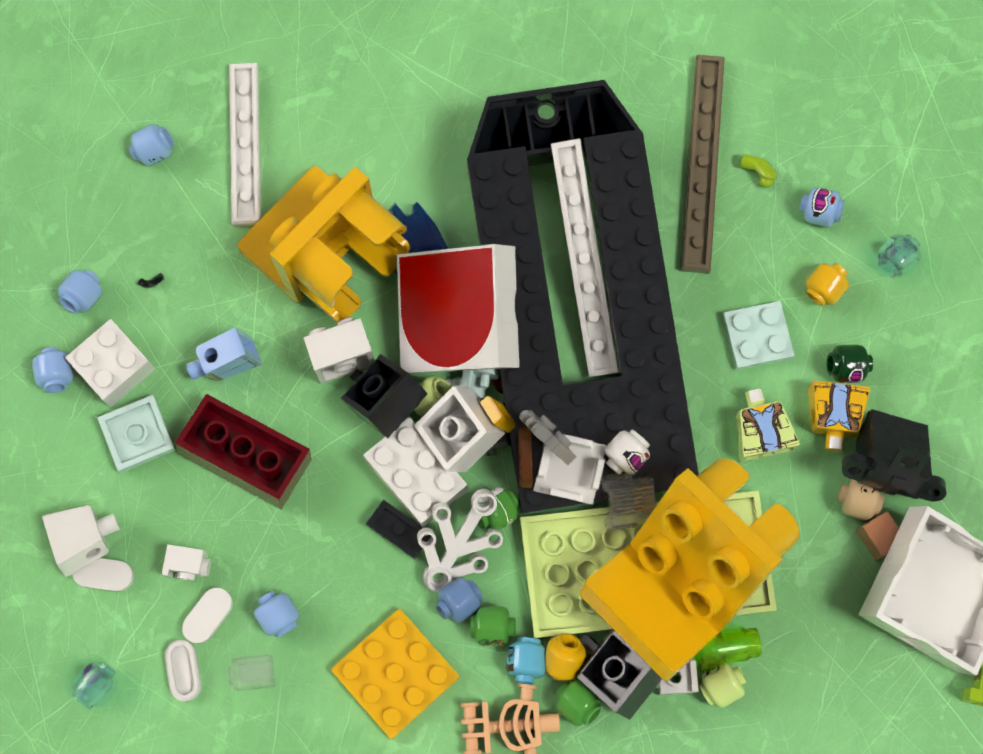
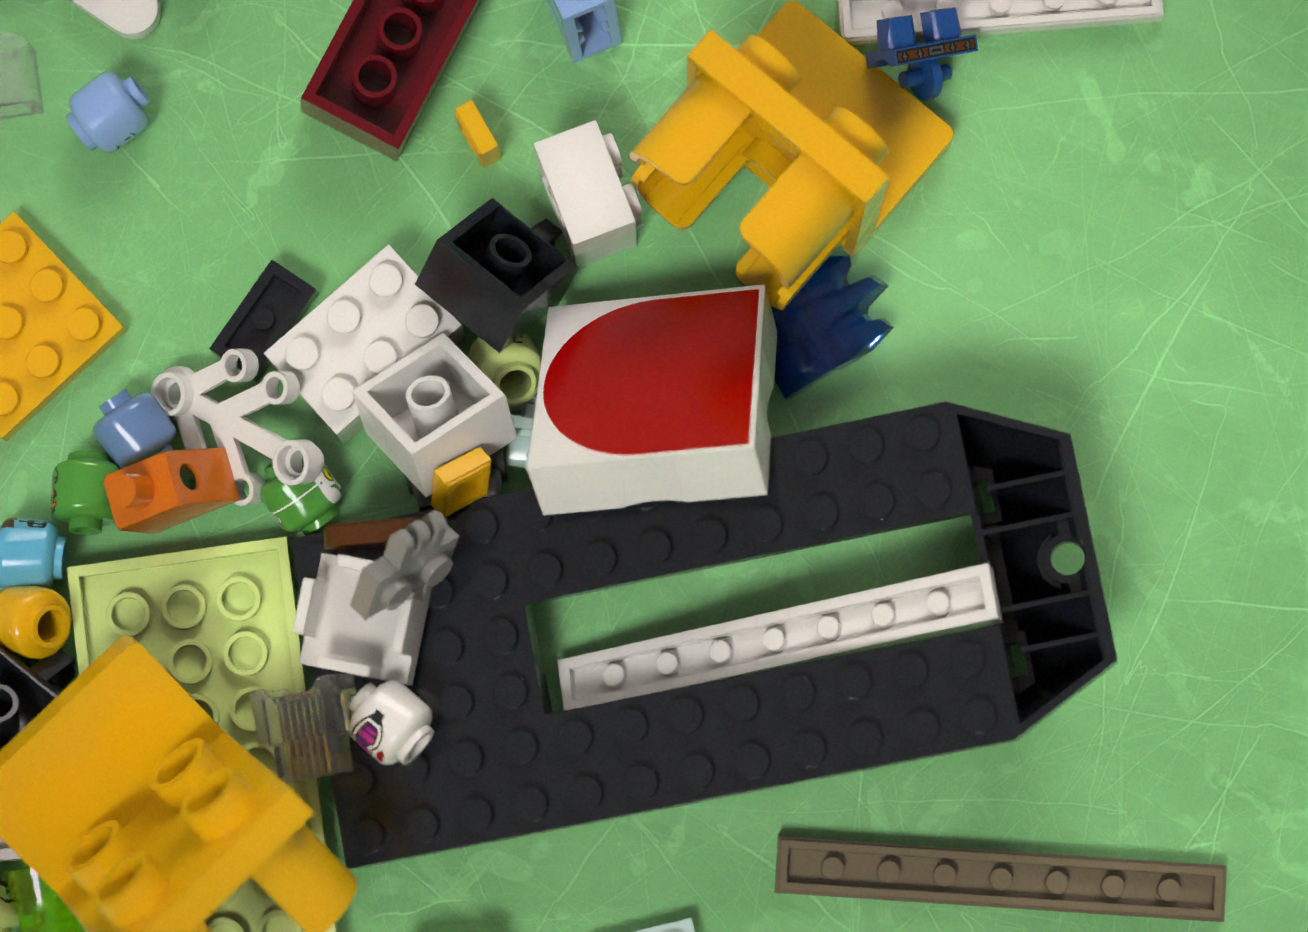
camera: 90 degrees right, 5 degrees up
(268, 179) = (899, 47): none -> blue hips
(300, 412) = (477, 134): none -> yellow tile
(494, 577) = (153, 498): none -> orange torso

